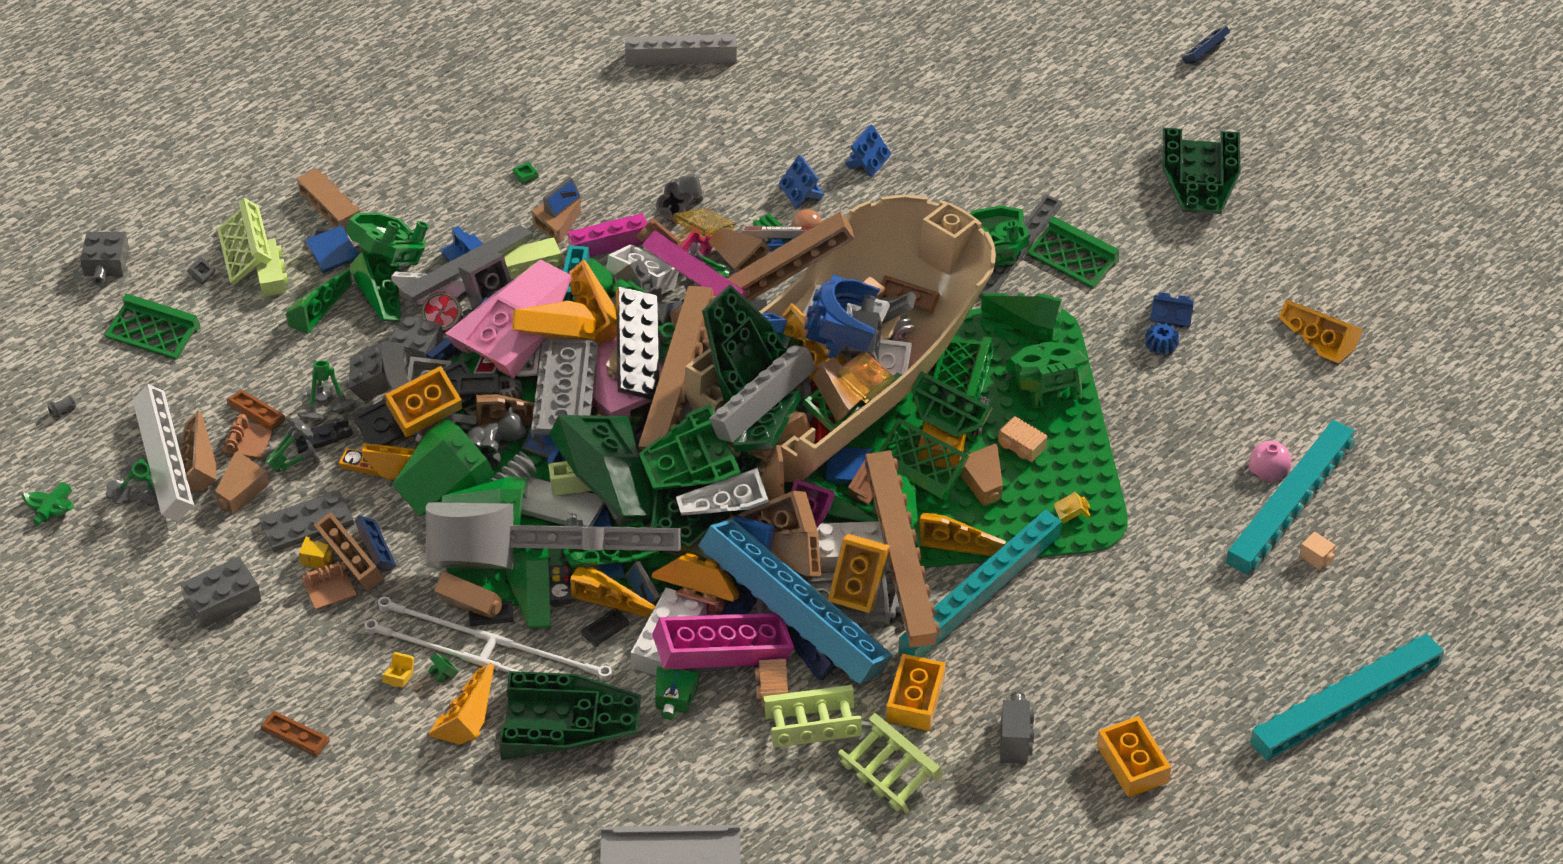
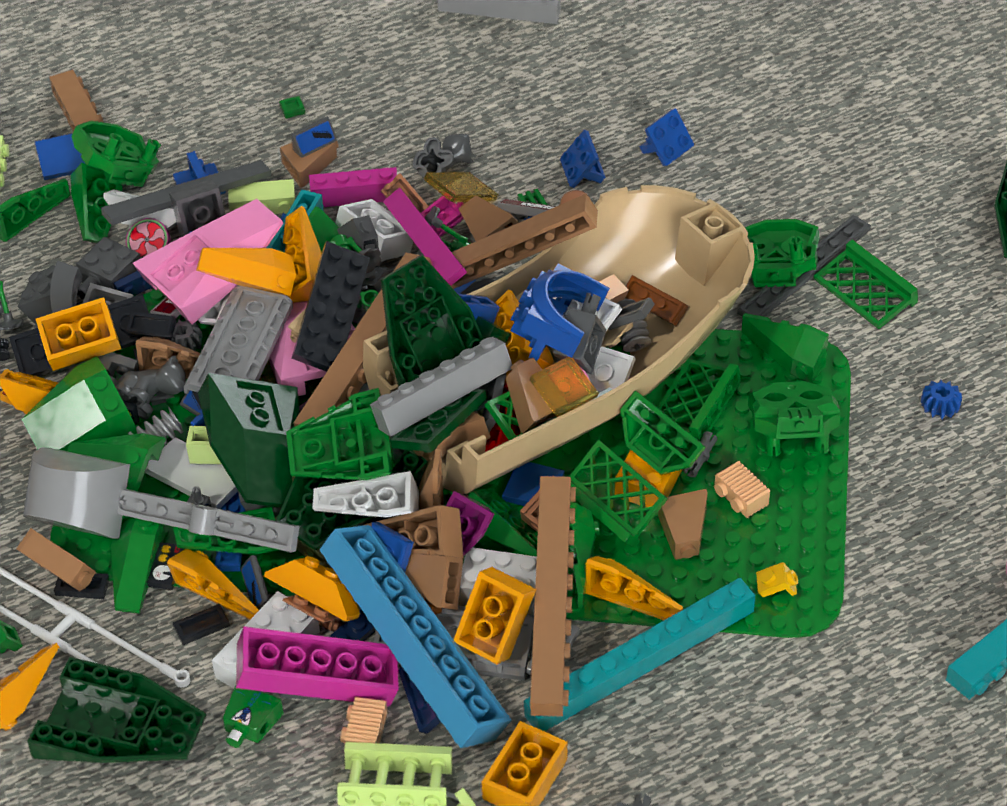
camera: 15 degrees right, 0 degrees up
(1172, 310) = (962, 368): blue bracket -> none

